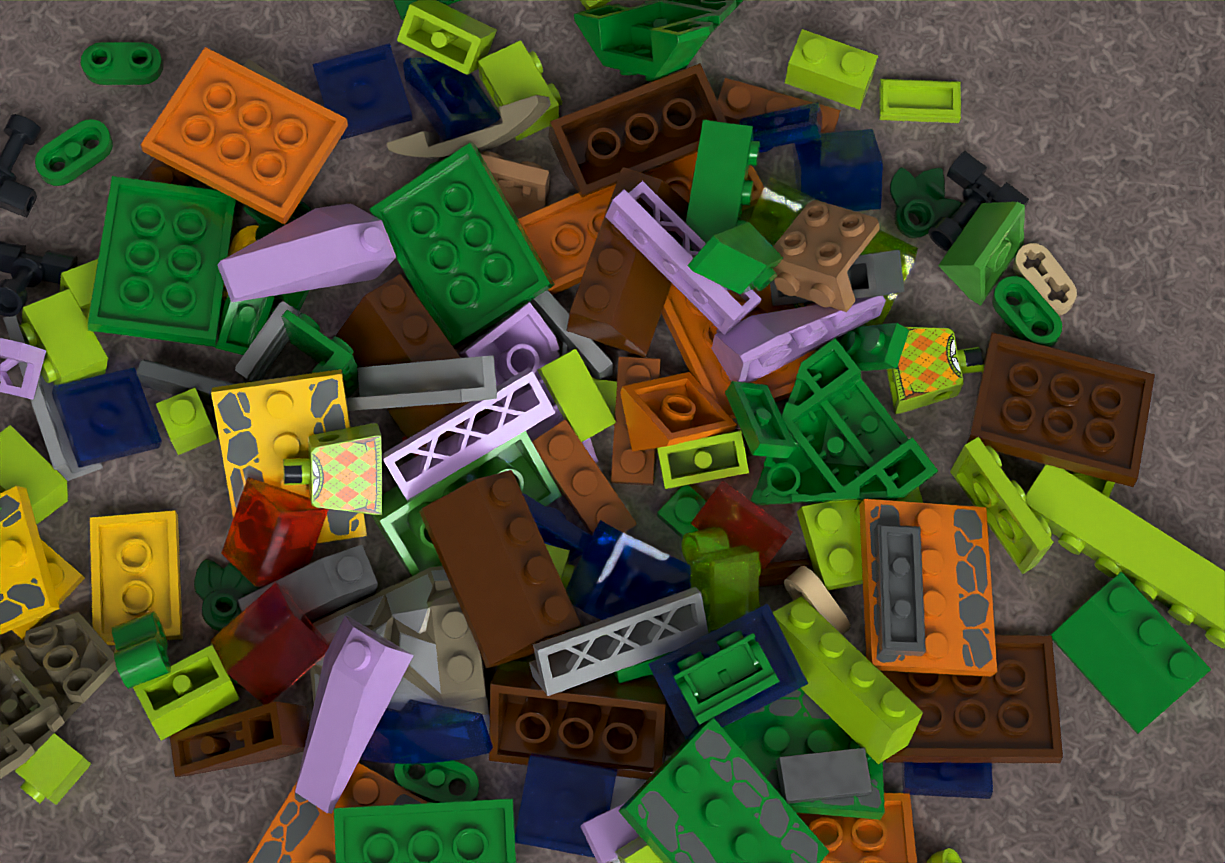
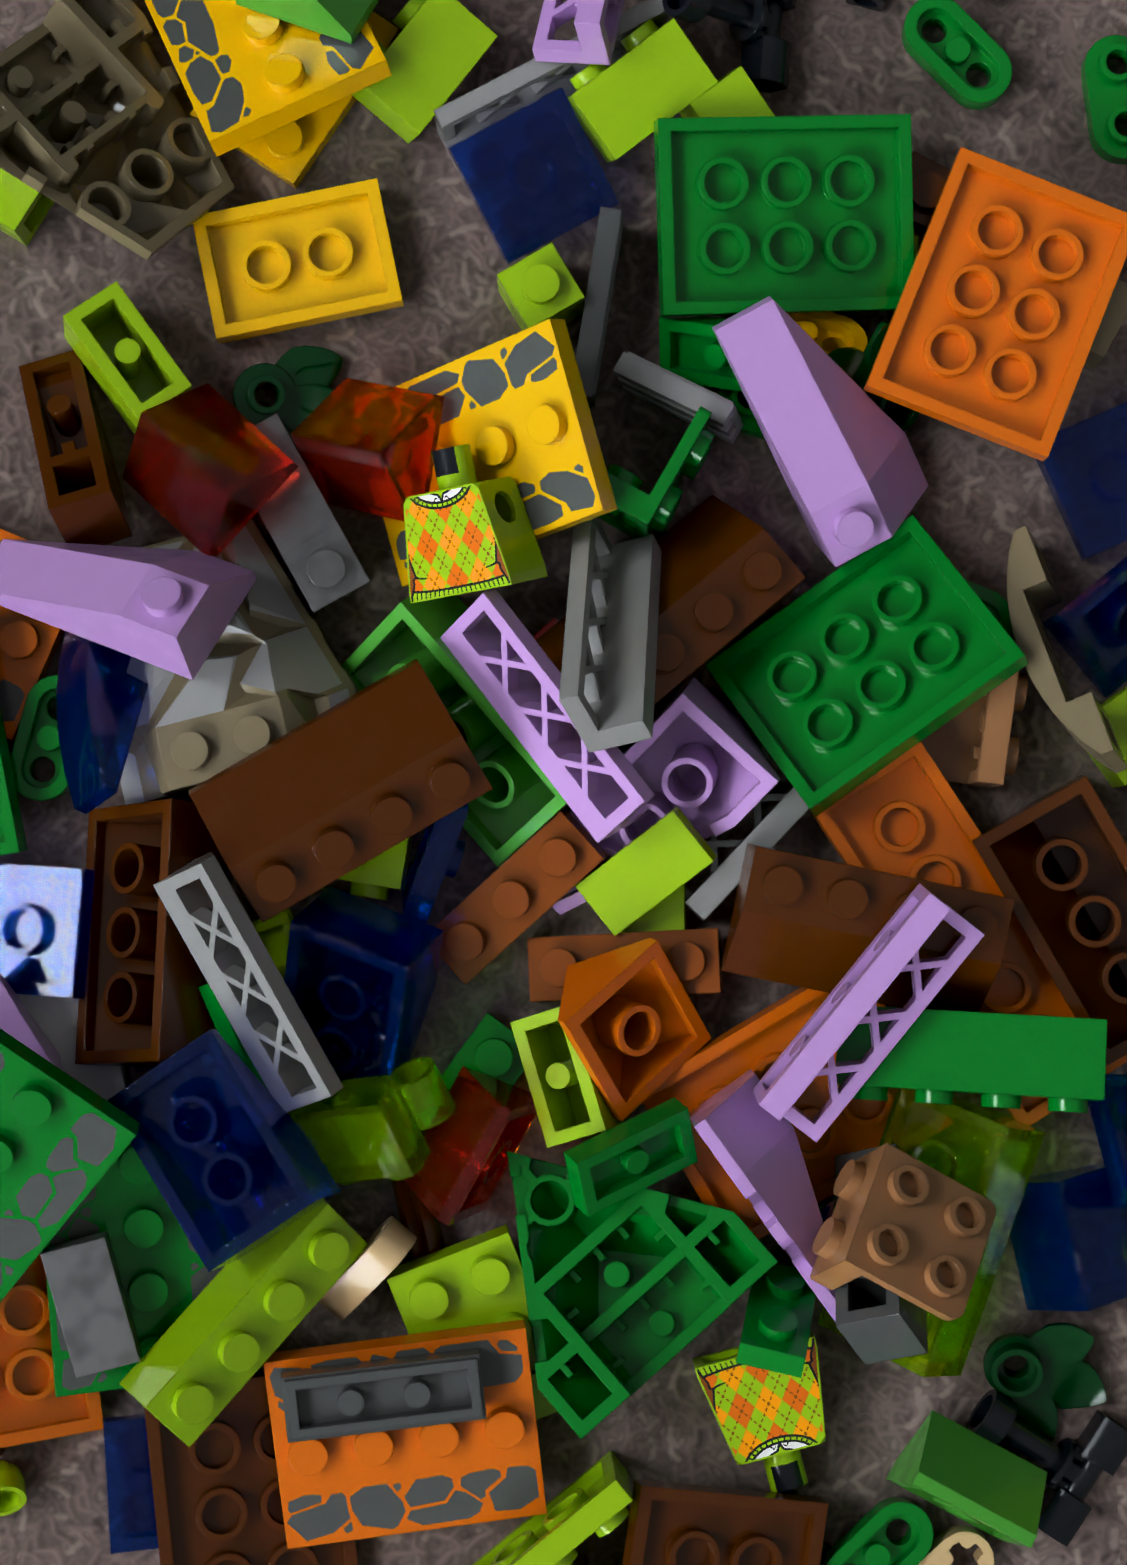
camera: 85 degrees right, 15 degrees up
(141, 650) = (170, 284): green axle -> none
(725, 676) = (192, 1147): green hinge -> none
(738, 259) = (862, 1103): green slope -> none

